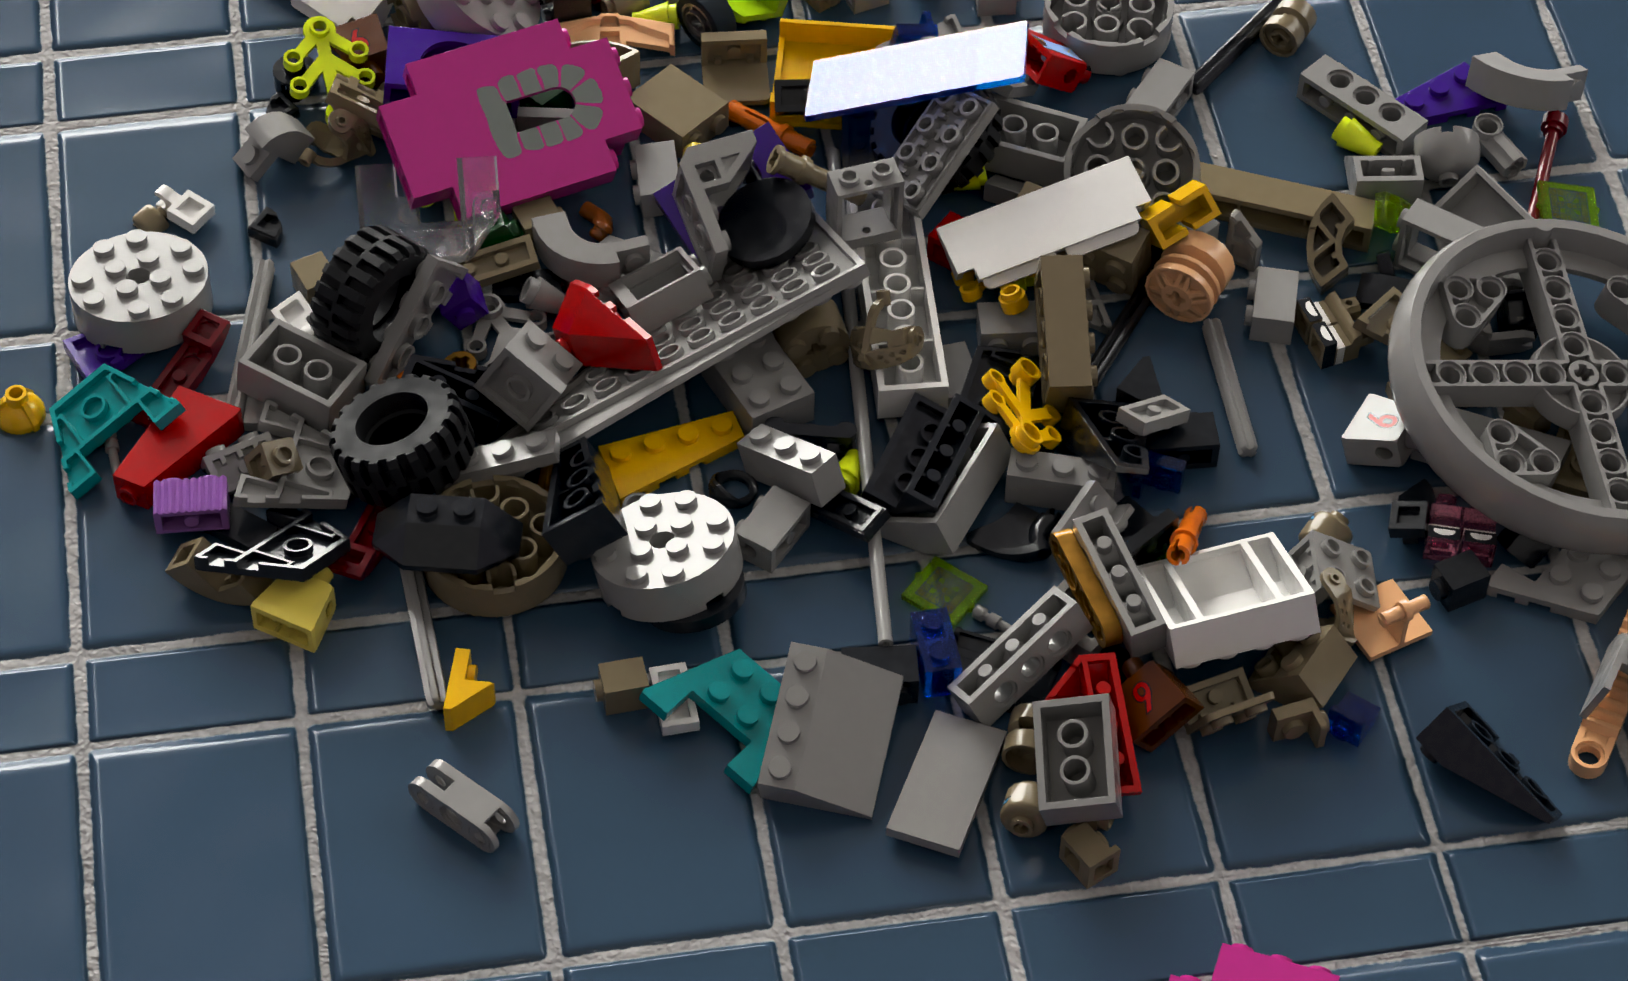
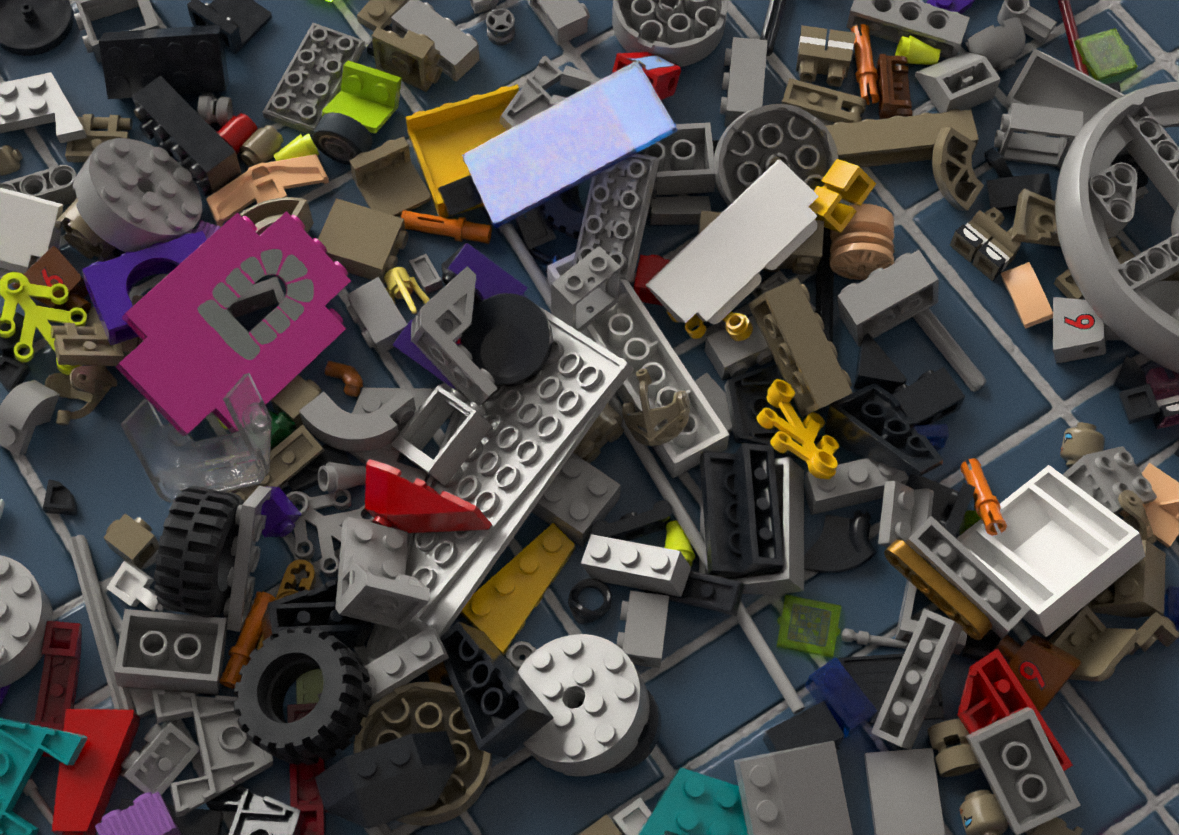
camera: 25 degrees left, 15 degrees up
(274, 459) = (192, 757): dark tan bracket -> none
(802, 171) = (518, 279): dark tan pin -> none
(913, 32) = (532, 96): clear blue bracket -> none
(1152, 415) = (908, 397): light grey plate -> none
(1187, 329) = (888, 296): none -> light grey brick
(1227, 149) = (824, 102): none -> dark tan plate
(1243, 242) = (886, 191): light grey tile -> none
(1253, 107) = (814, 59): none -> dark tan hips
(1273, 305) = (934, 236): light grey piece -> none
(1290, 139) = (866, 72): none -> orange pin
(1313, 158) = (893, 87): none -> reddish brown hinge
(1346, 387) = (1027, 295): none -> light nougat slope
(1387, 211) = (984, 117): clear neon green slope -> none

